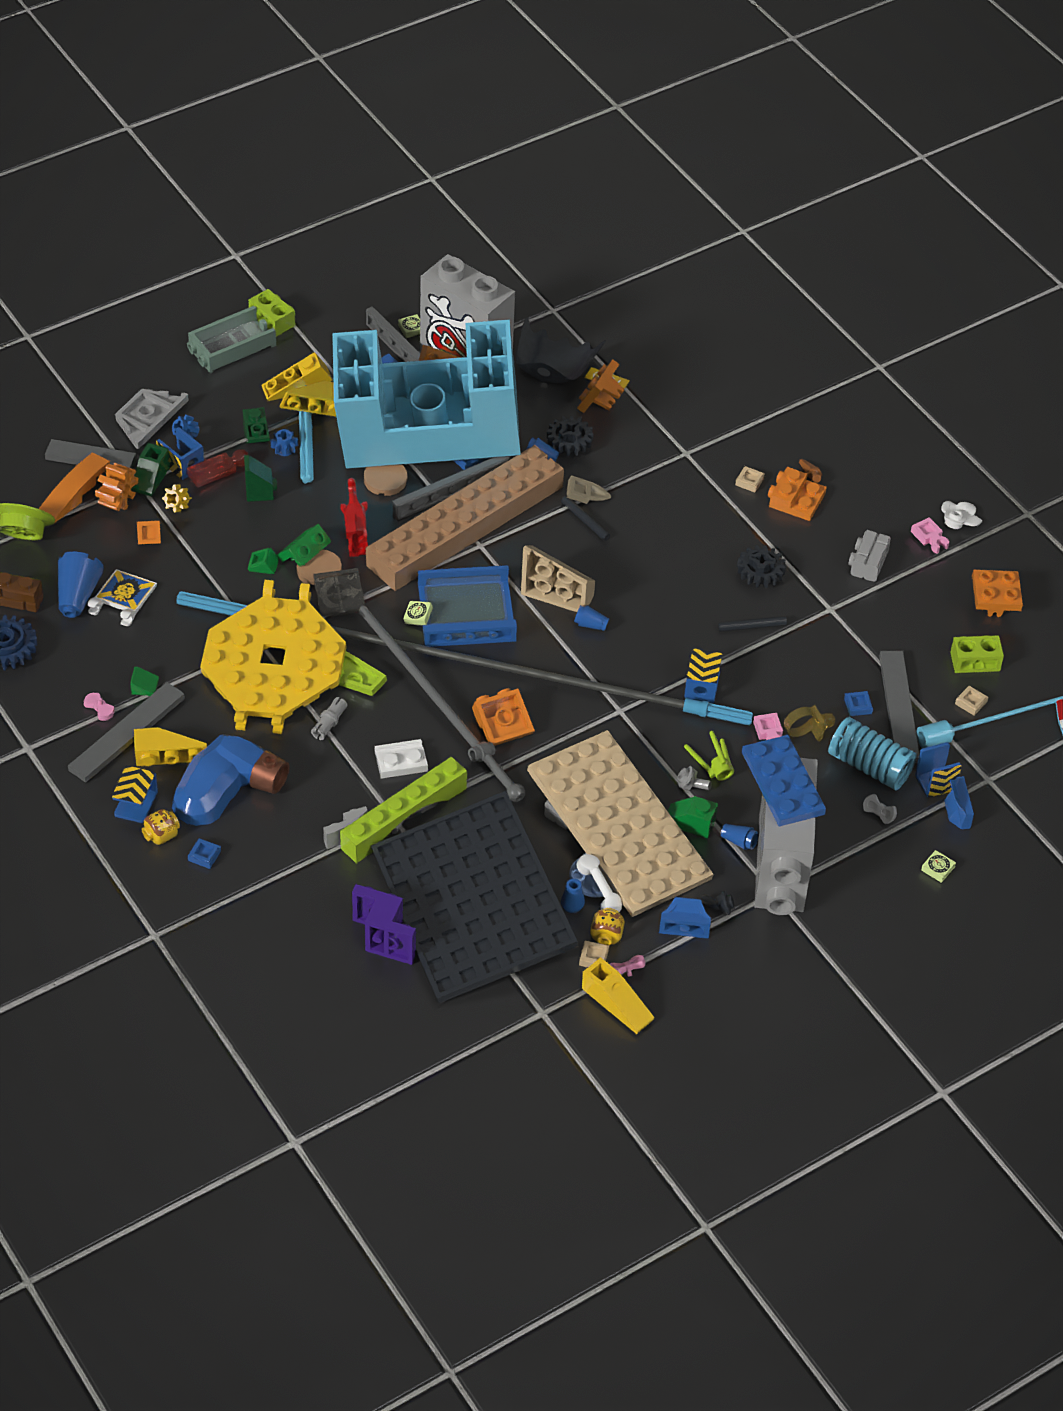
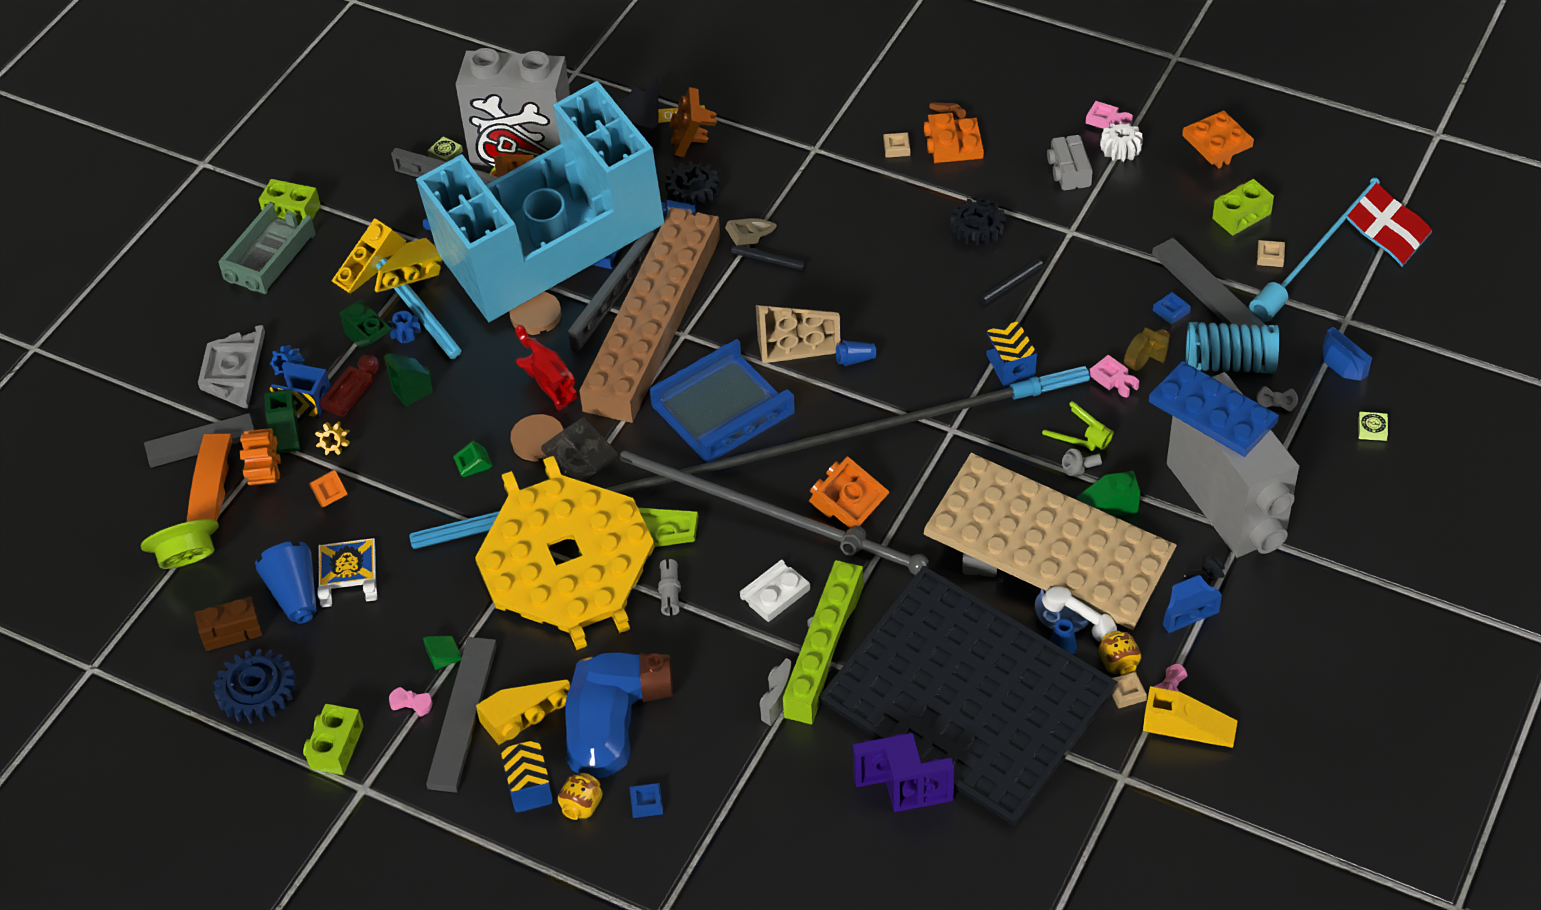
camera: 25 degrees left, 0 degrees up
(29, 704) = (338, 740): none -> lime brick
(305, 546) = (507, 421): green bracket -> none
(418, 613) = (677, 432): yellowish green tile -> none
(741, 836) = (1170, 493): blue cone -> none
(923, 558) = (1121, 141): none -> white gear
(932, 766) = (1291, 334): blue piece -> none
(960, 514) = (1117, 86): white plate -> none

